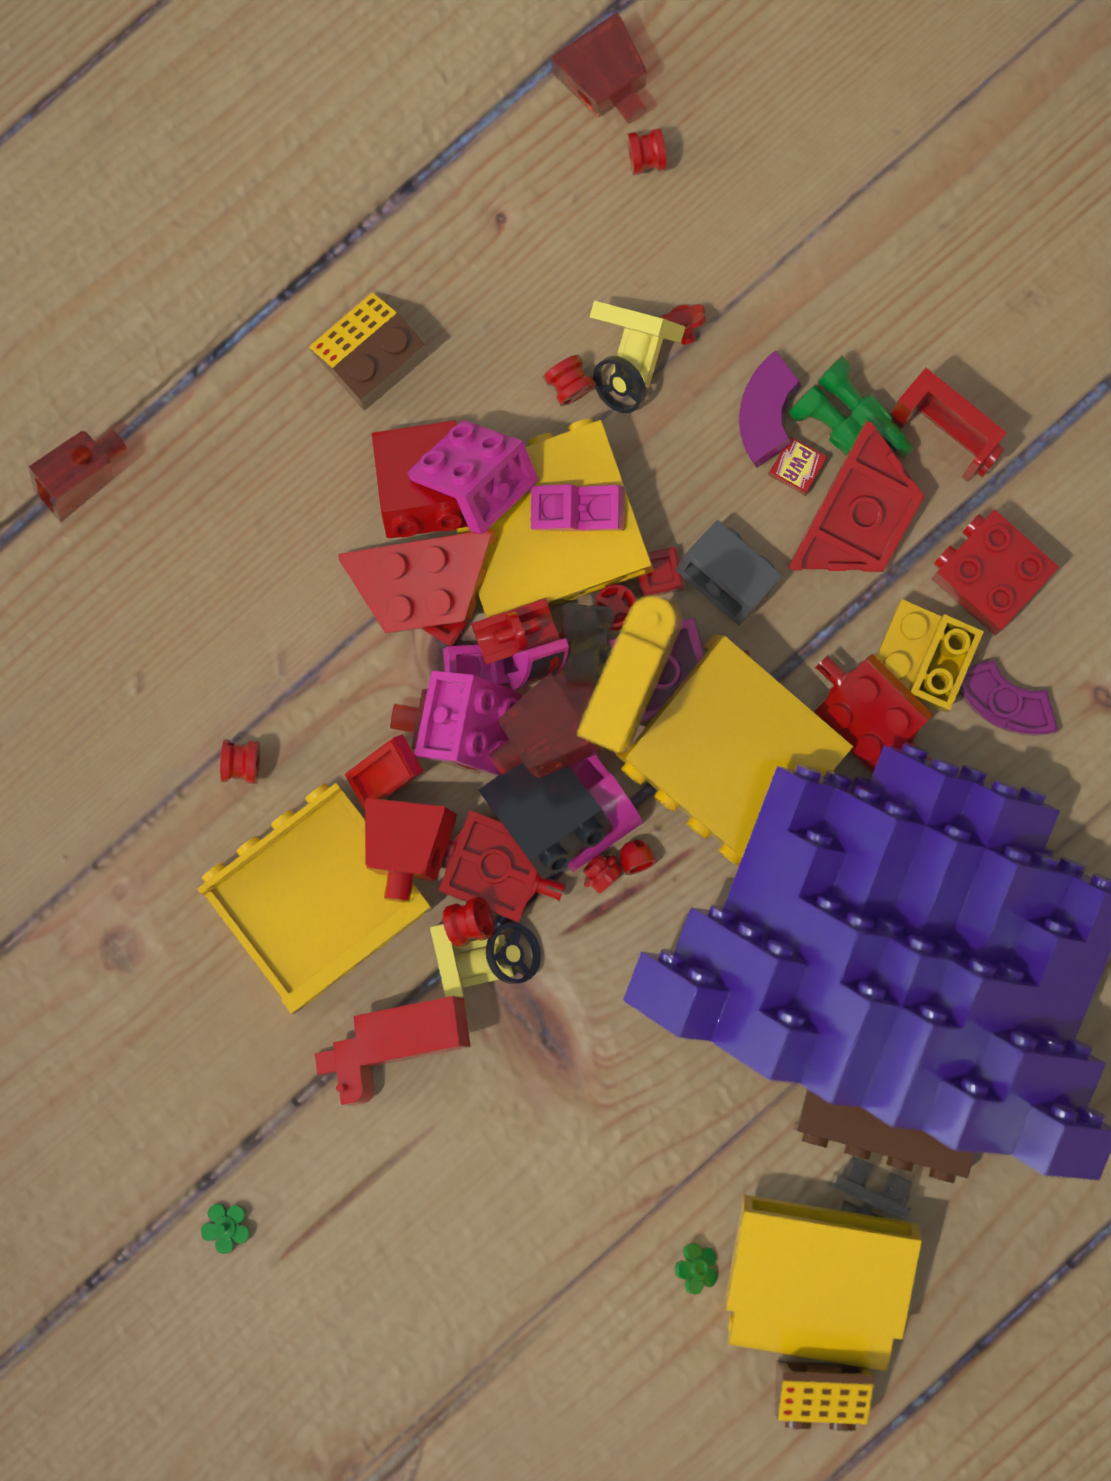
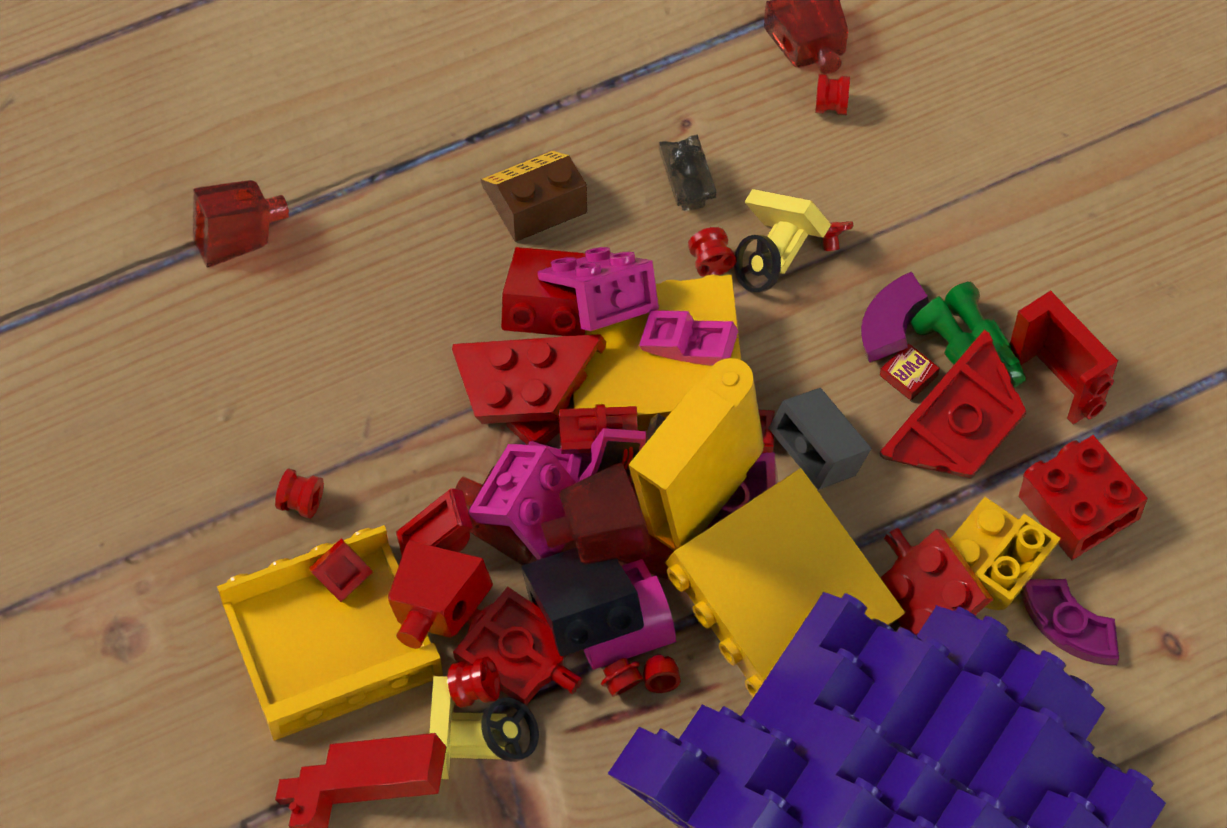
camera: 10 degrees right, 25 degrees down
(308, 837) = (341, 570): none -> red tile
(521, 290) = (688, 172): none -> clear smoke hips

